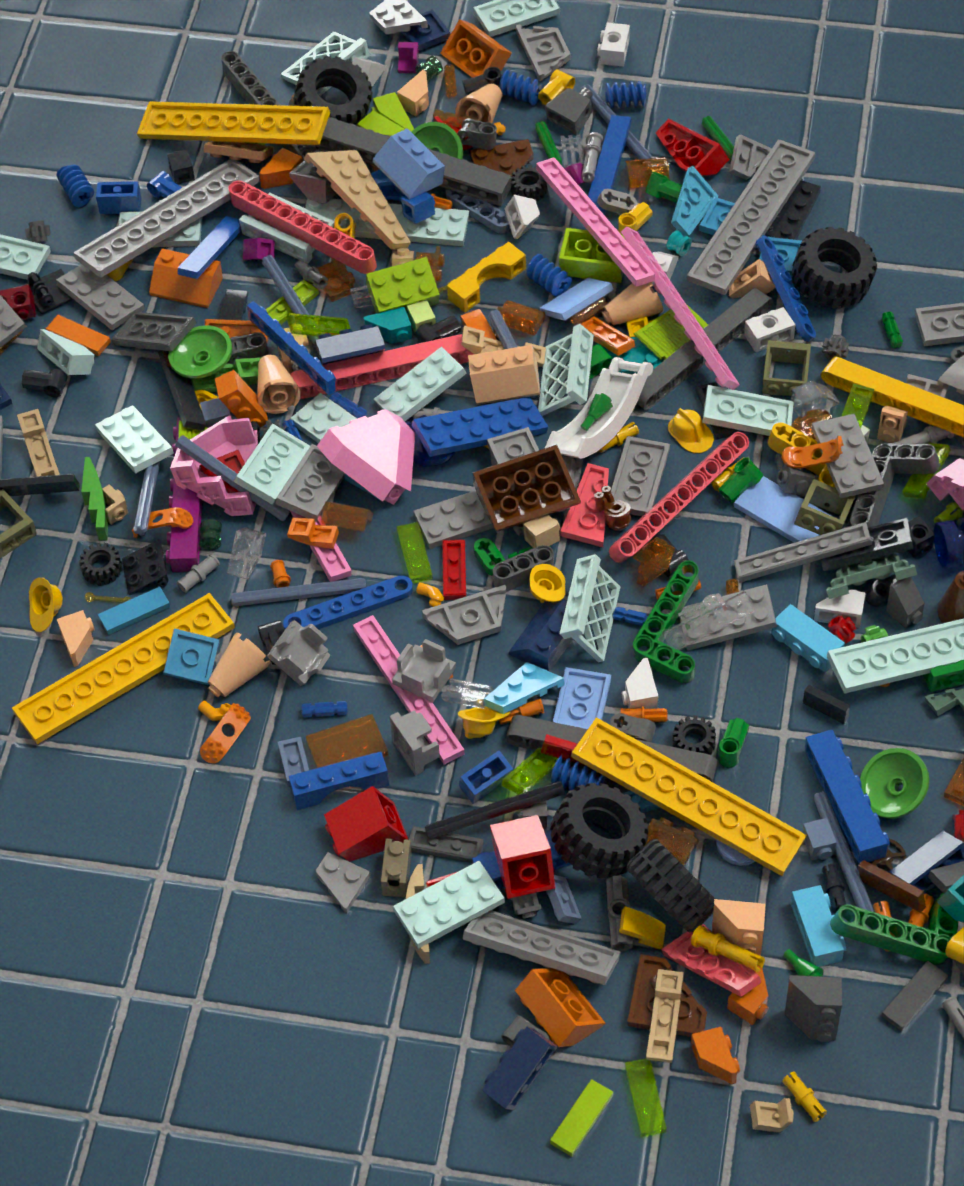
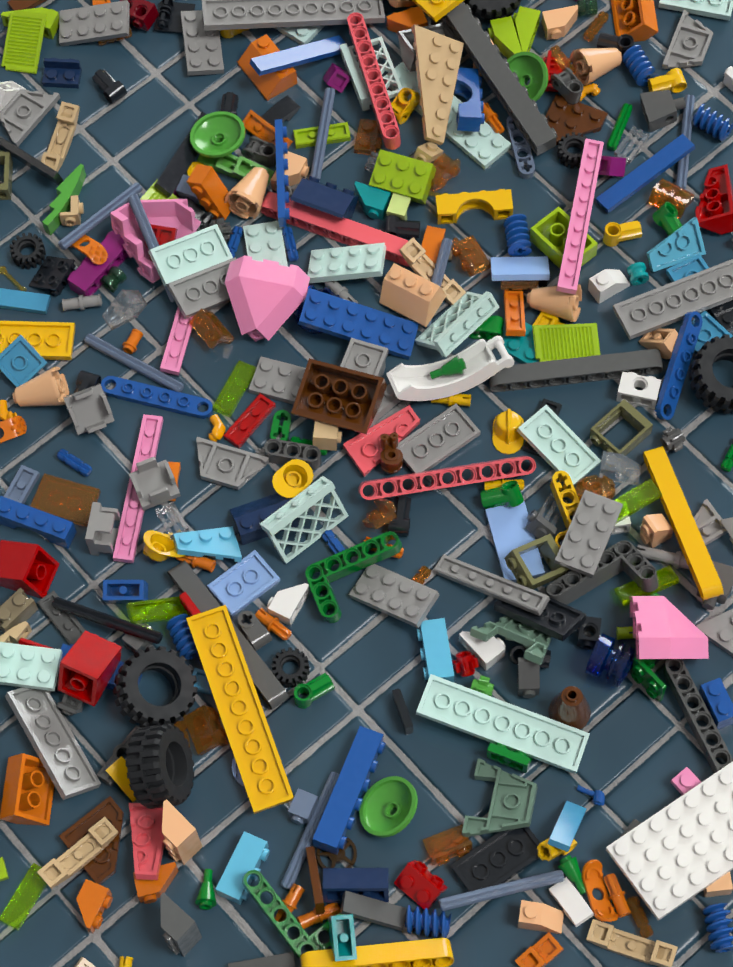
camera: 40 degrees right, 10 degrees up
(66, 354) = (139, 75): light aqua slope -> none
(91, 339) = (162, 64): orange tile -> none
(134, 439) = (125, 170): light aqua plate -> none
(153, 331) = (206, 96): dark grey tile -> none
(307, 532) = (174, 326): orange slope -> none
(311, 274) = (353, 122): dark grey pin -> none
(316, 325) = (321, 167): clear neon green tile -> none
(409, 164) = (483, 80): medium blue slope -> none
(521, 214) = (542, 174): white slope -> none
(563, 901) = (97, 718): sand blue plate -> none
(591, 152) = (642, 155): light grey pin -> none
(617, 201) = (626, 205): light grey beam -> none
(682, 313) = (578, 329): bright pink plate -> none
(707, 618) = (372, 585): clear bracket -> none
(719, 945) = (154, 832): yellow pin -> none
(802, 456) = (555, 509): orange piece -> none
(834, 887) = (280, 850): black pin -> none

